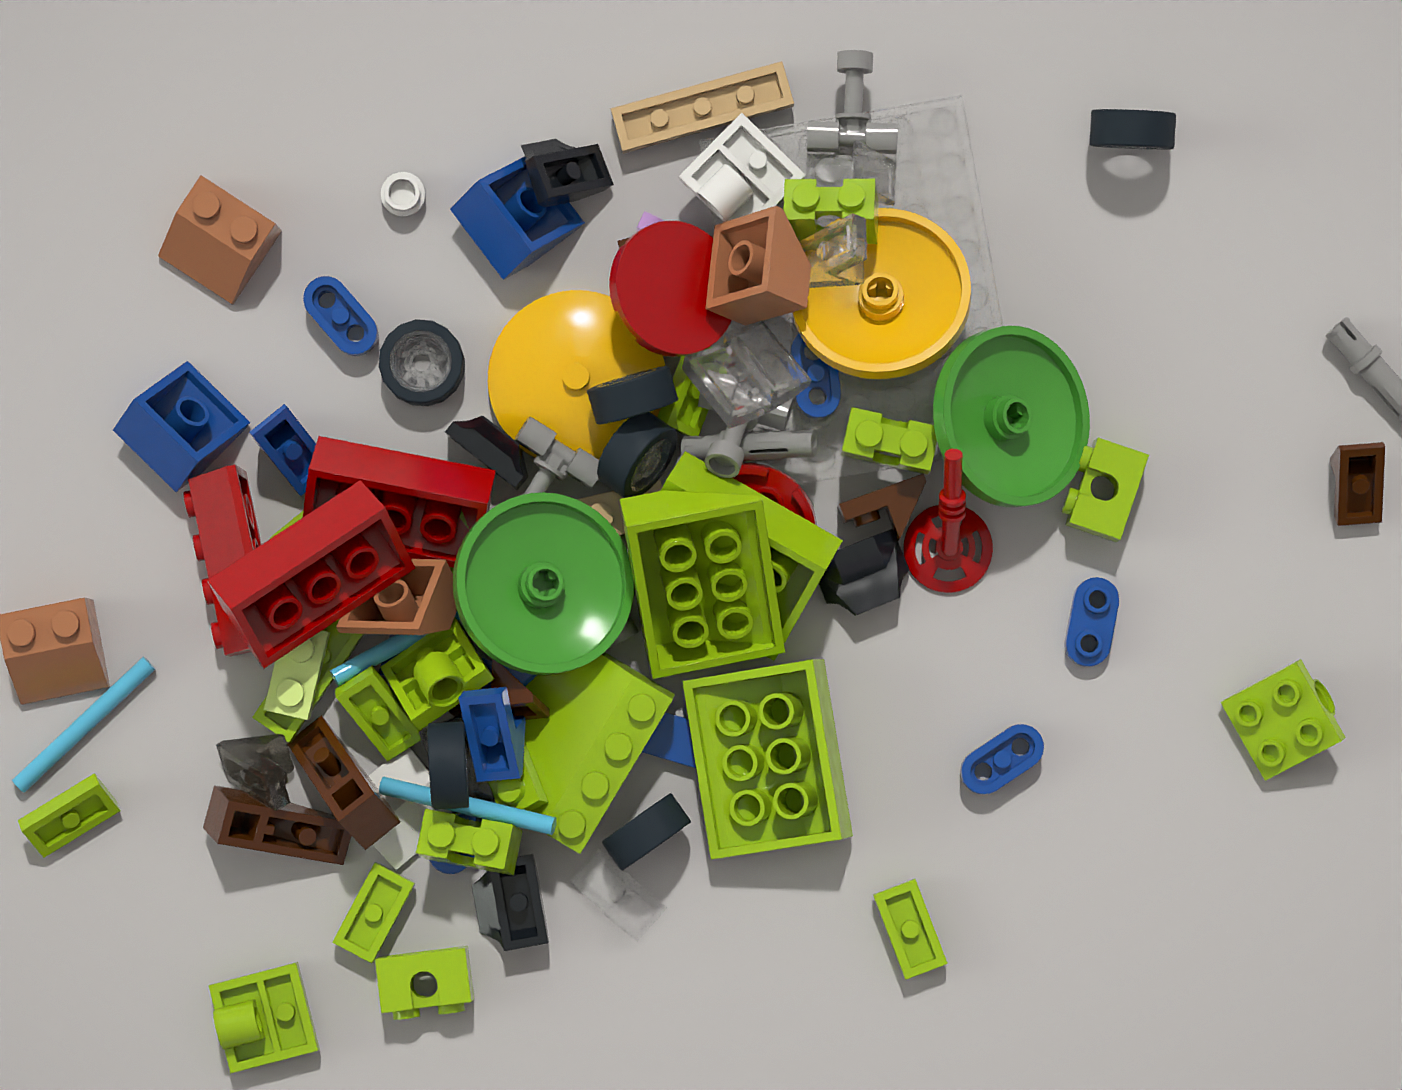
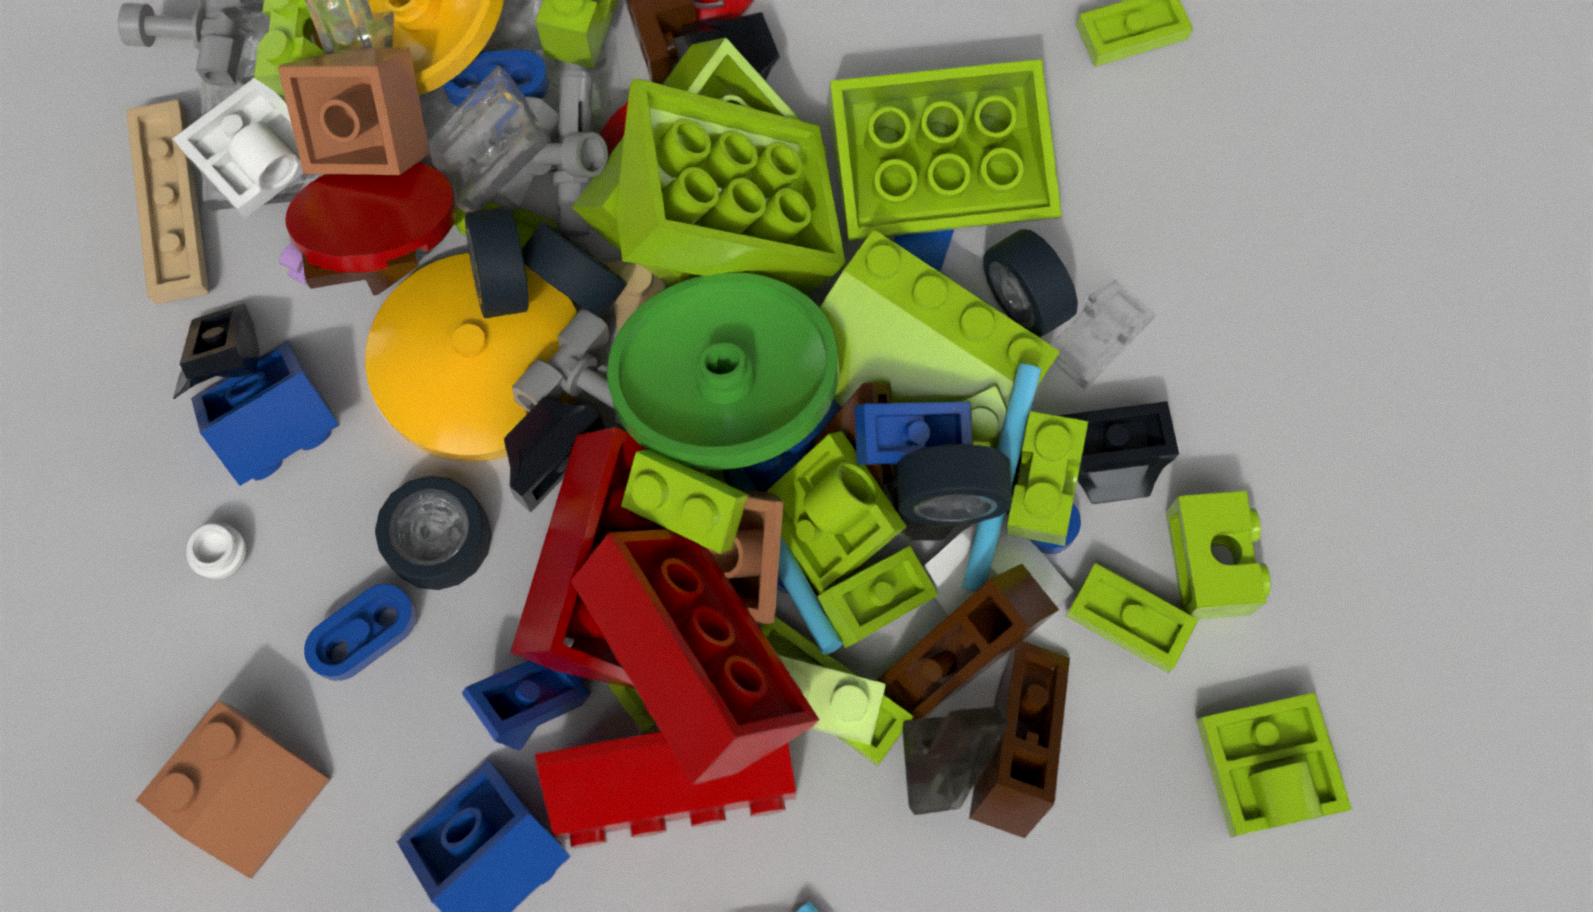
camera: 90 degrees left, 15 degrees down
(427, 560) = (684, 500): none -> lime plate

